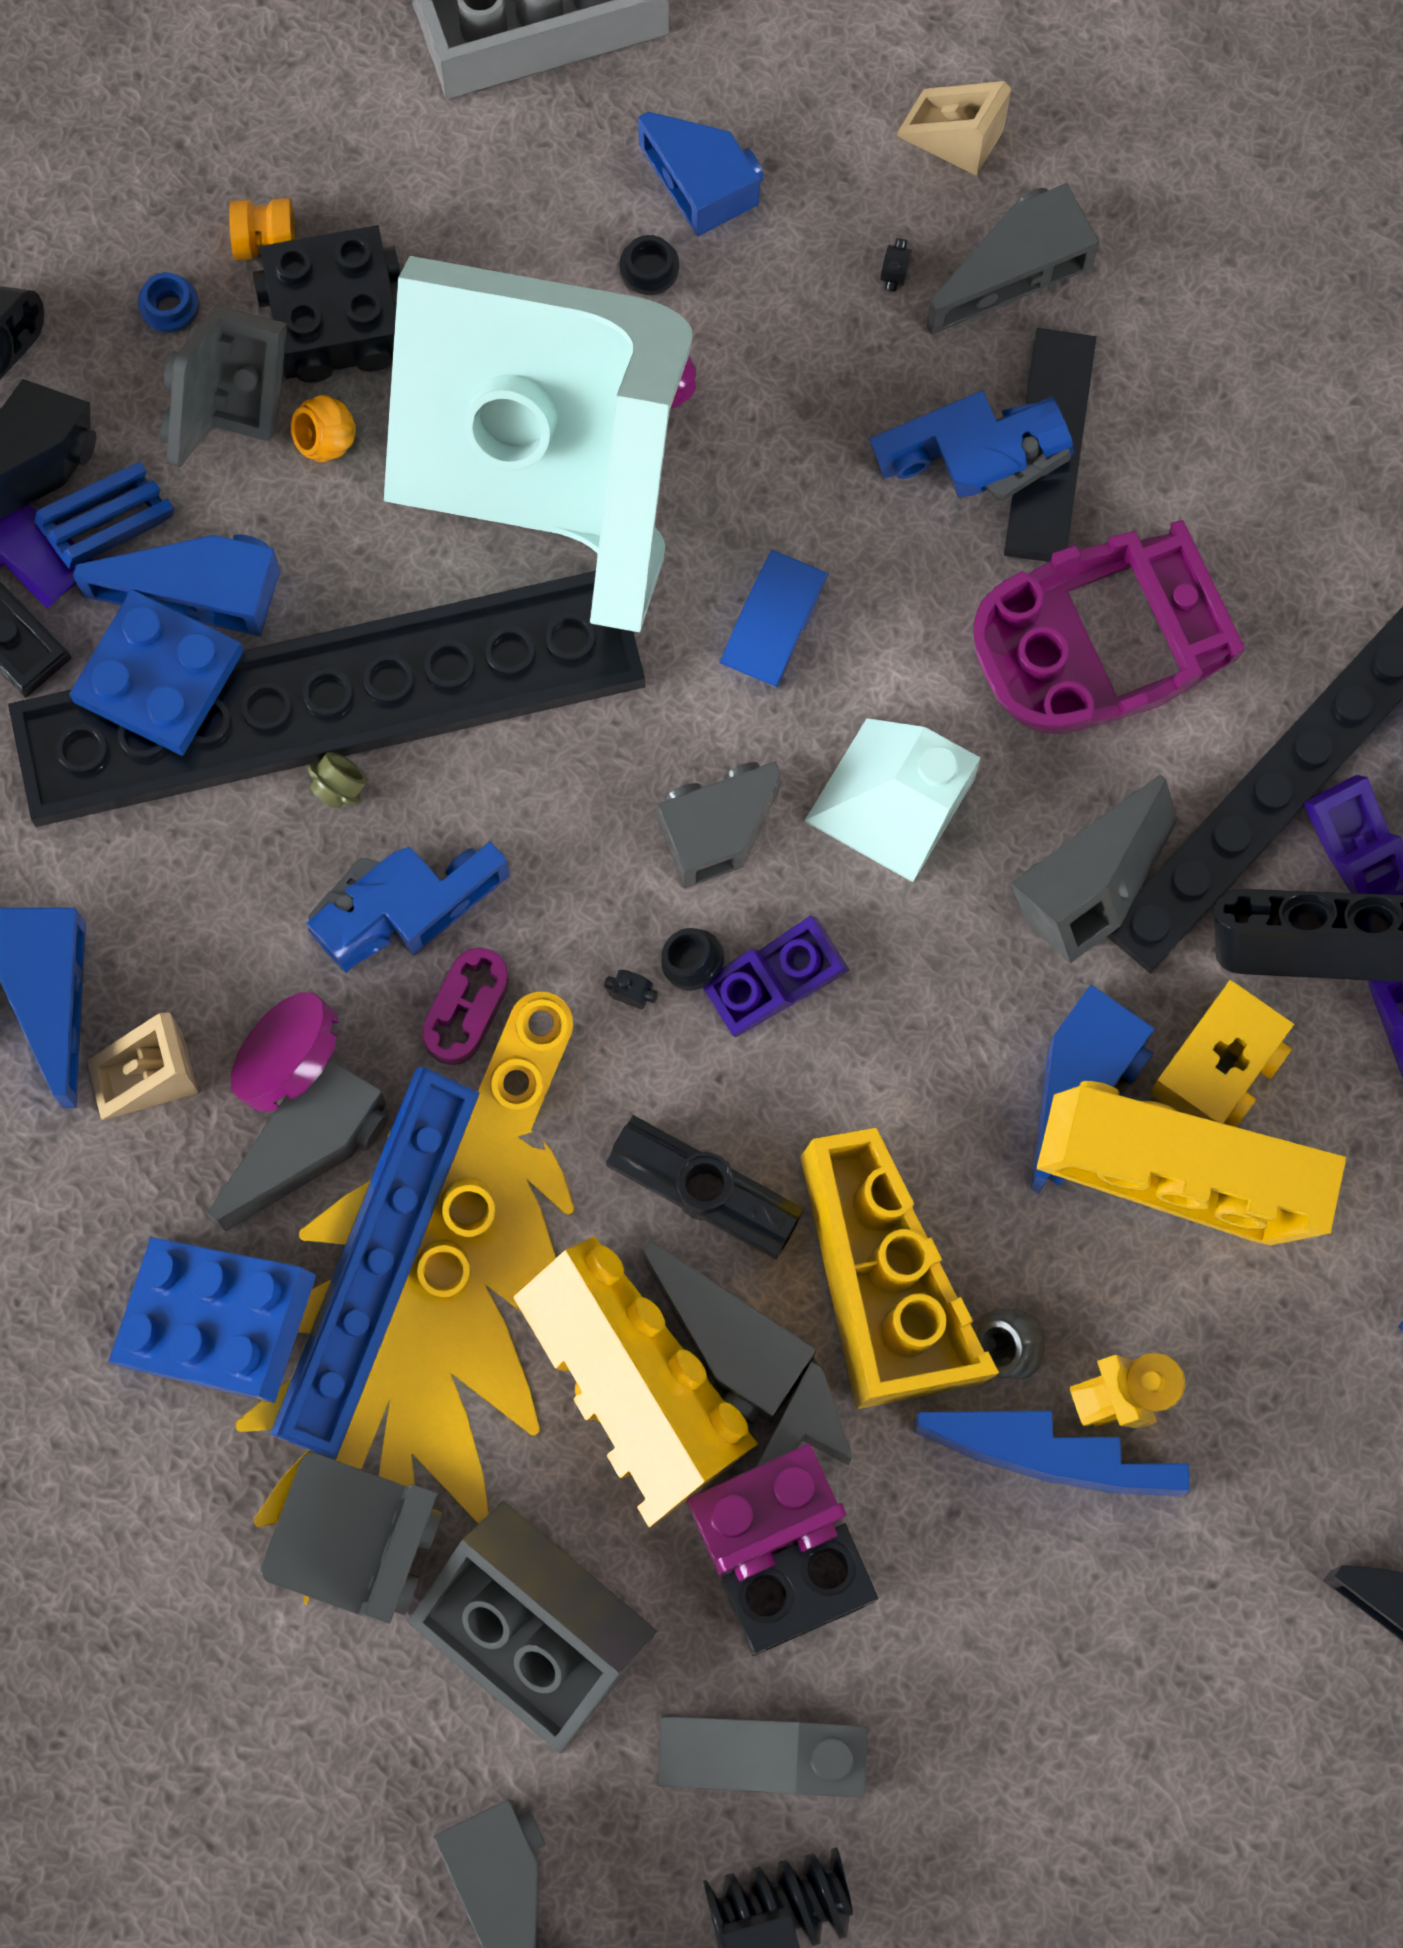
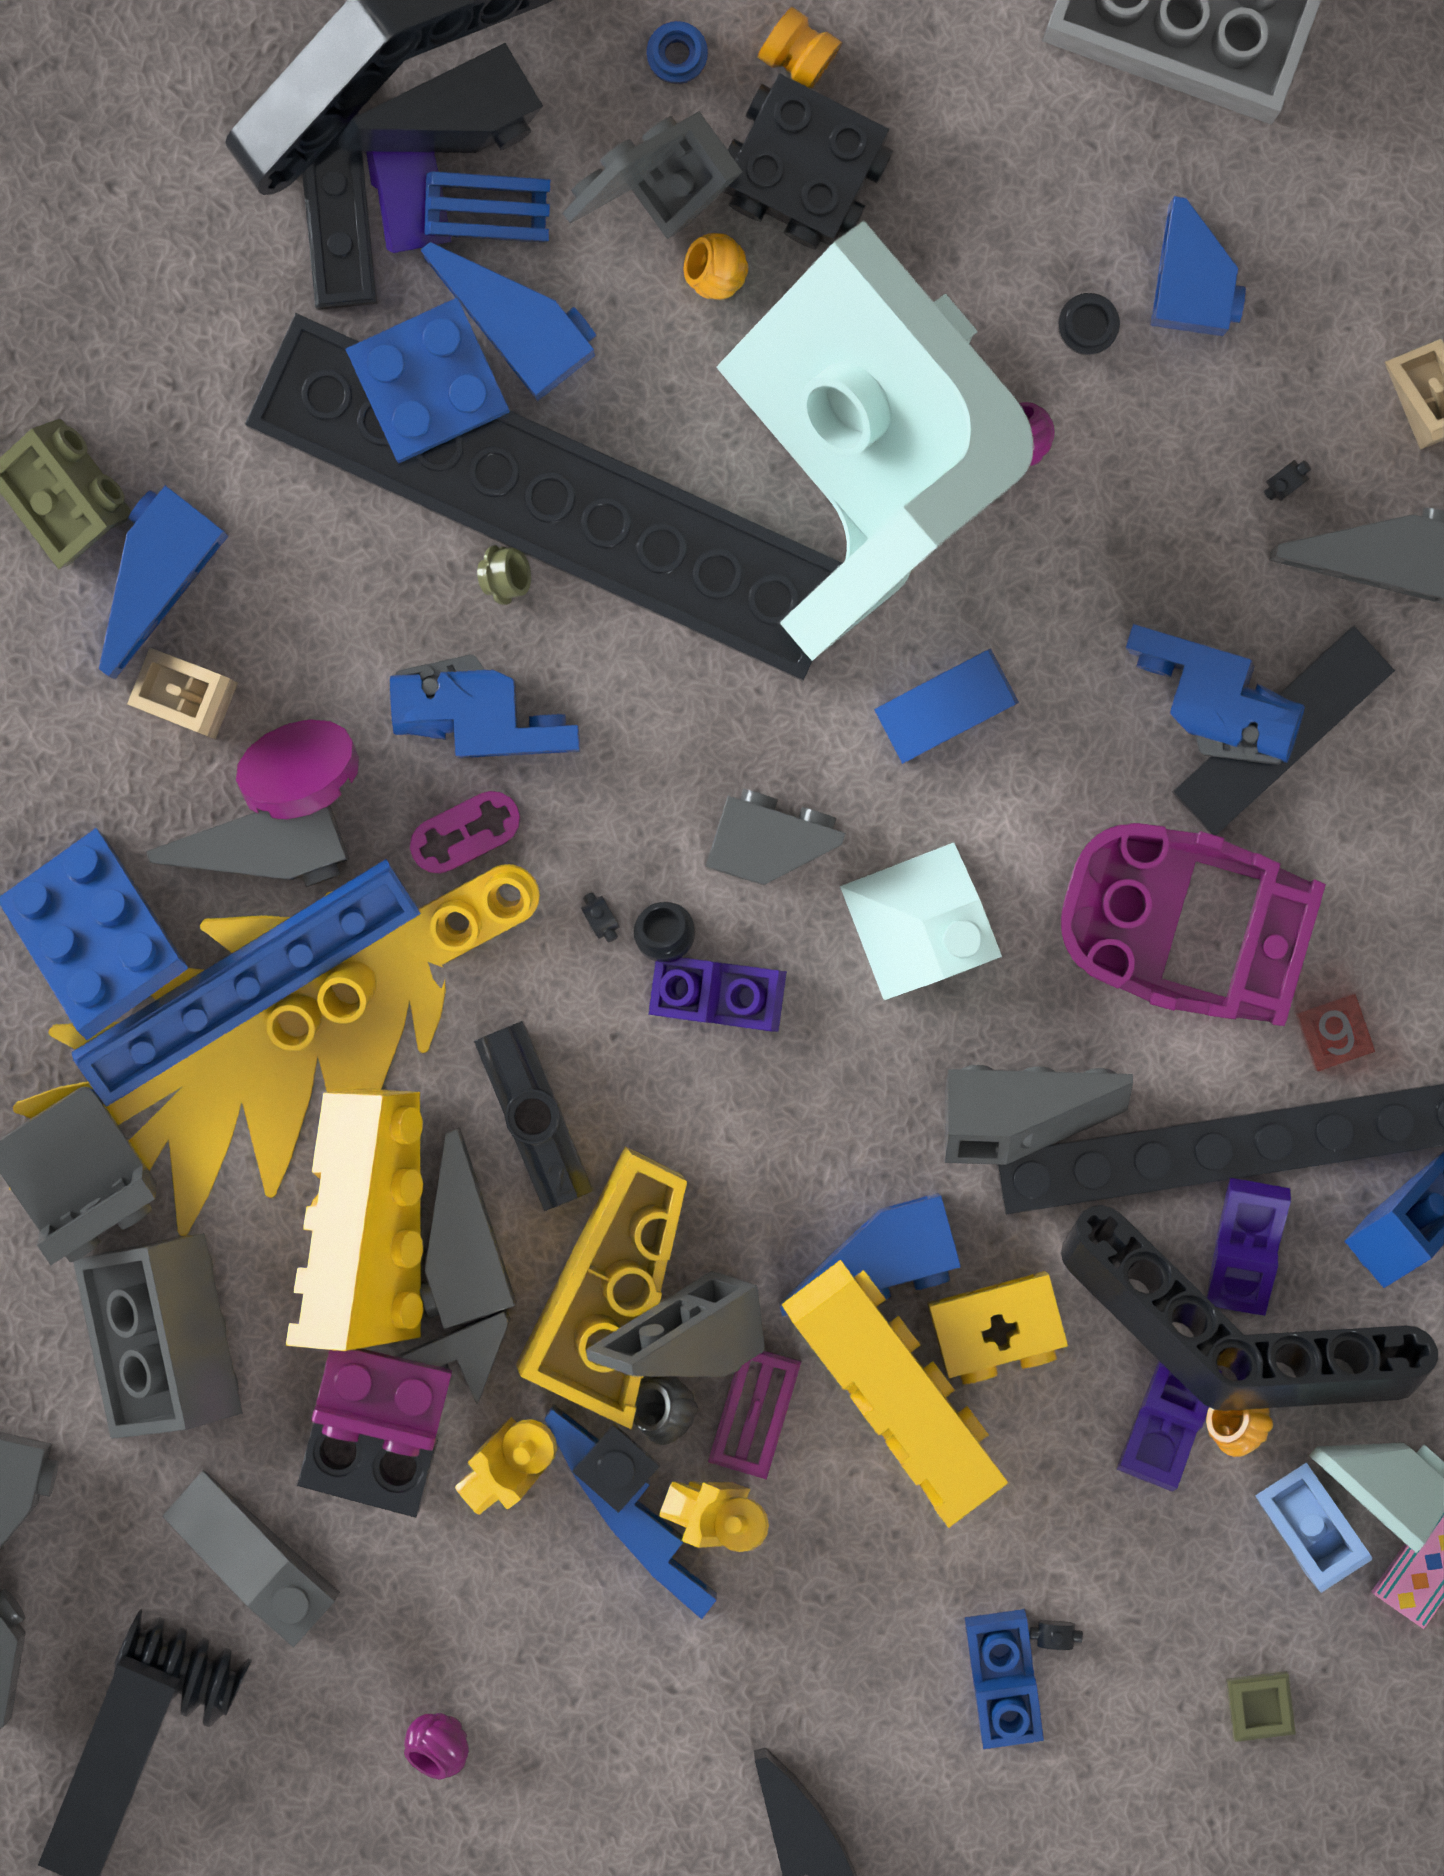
camera: 35 degrees right, 15 degrees up
(920, 1486) = (508, 1464): none -> yellow hips
(985, 1243) = (693, 1333): none -> dark grey slope
(1012, 1415) = (616, 1467): none -> black plate
(1055, 1794) = (436, 1745): none -> magenta piece
(1106, 1342) = (739, 1461): none -> magenta tile
(1285, 634) = (1335, 1032): none -> clear red tile

